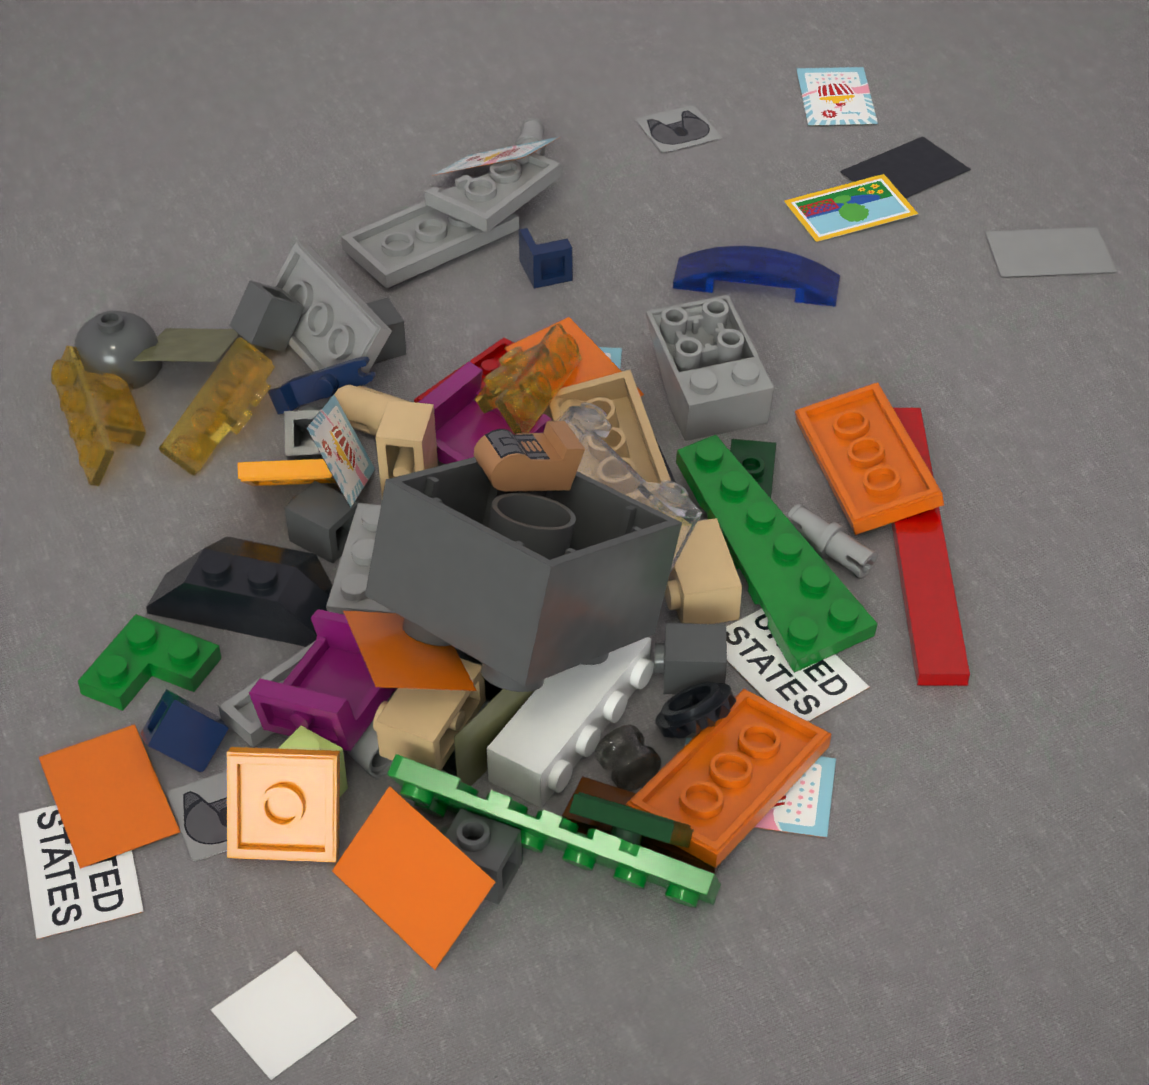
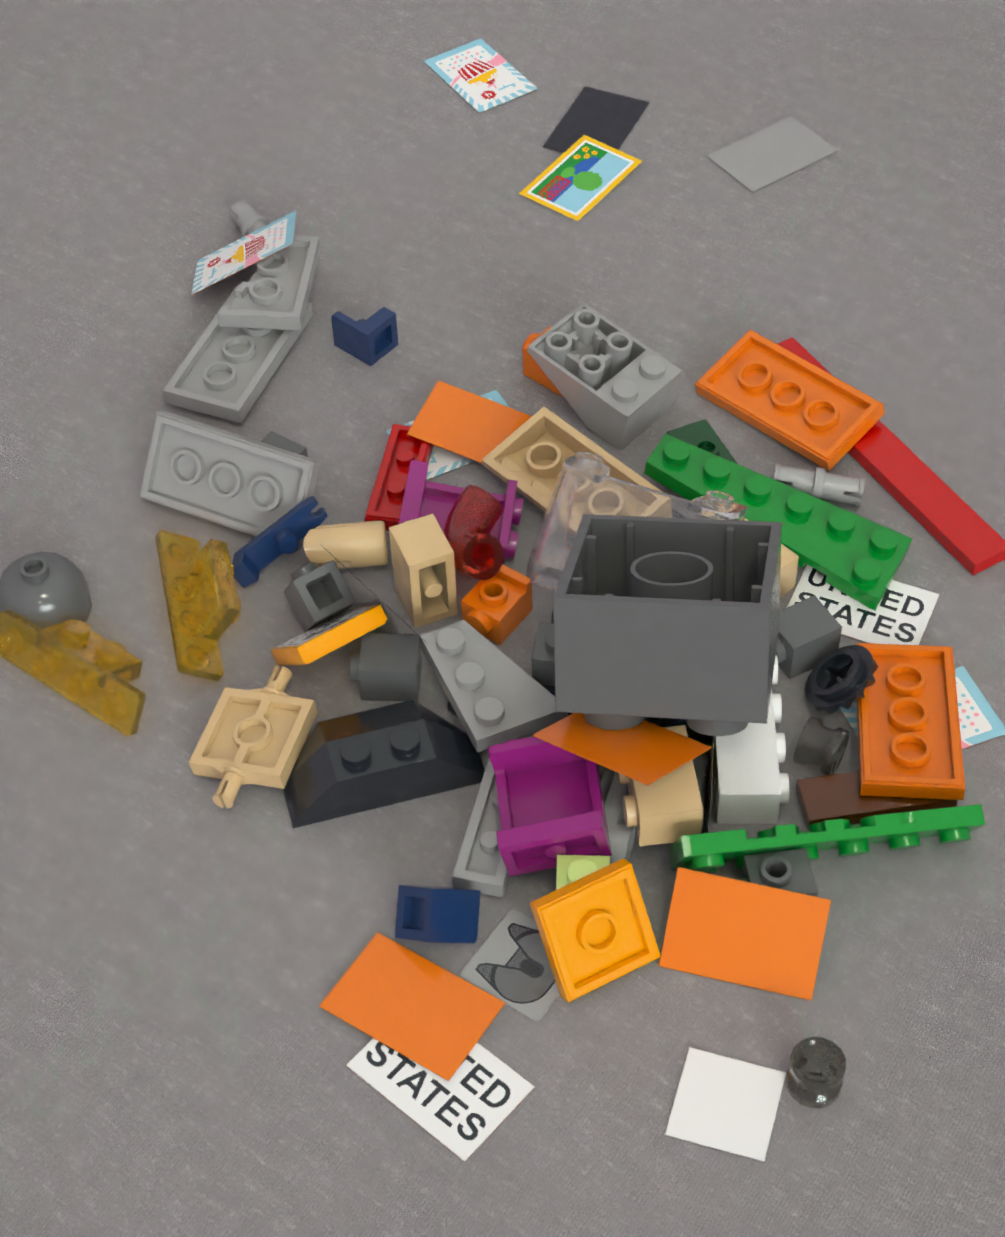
camera: 30 degrees left, 5 degrees up
(144, 651) = (334, 859): green plate -> none
(170, 525) = (253, 737): none -> tan plate
(189, 345) = (117, 558): olive sticker -> none
(266, 317) = (168, 499): dark grey brick -> none
(359, 1020) = (819, 1058): none -> clear smoke wheel
(460, 438) = (468, 533): none -> clear red cylinder
(530, 379) = (466, 452): clear yellow bracket -> none
(530, 459) = (632, 521): medium nougat leg -> none
(631, 823) = (887, 796): dark green plate -> none
(678, 128) = (367, 159): sticker -> none
(758, 266) = (556, 265): clear blue slope -> none

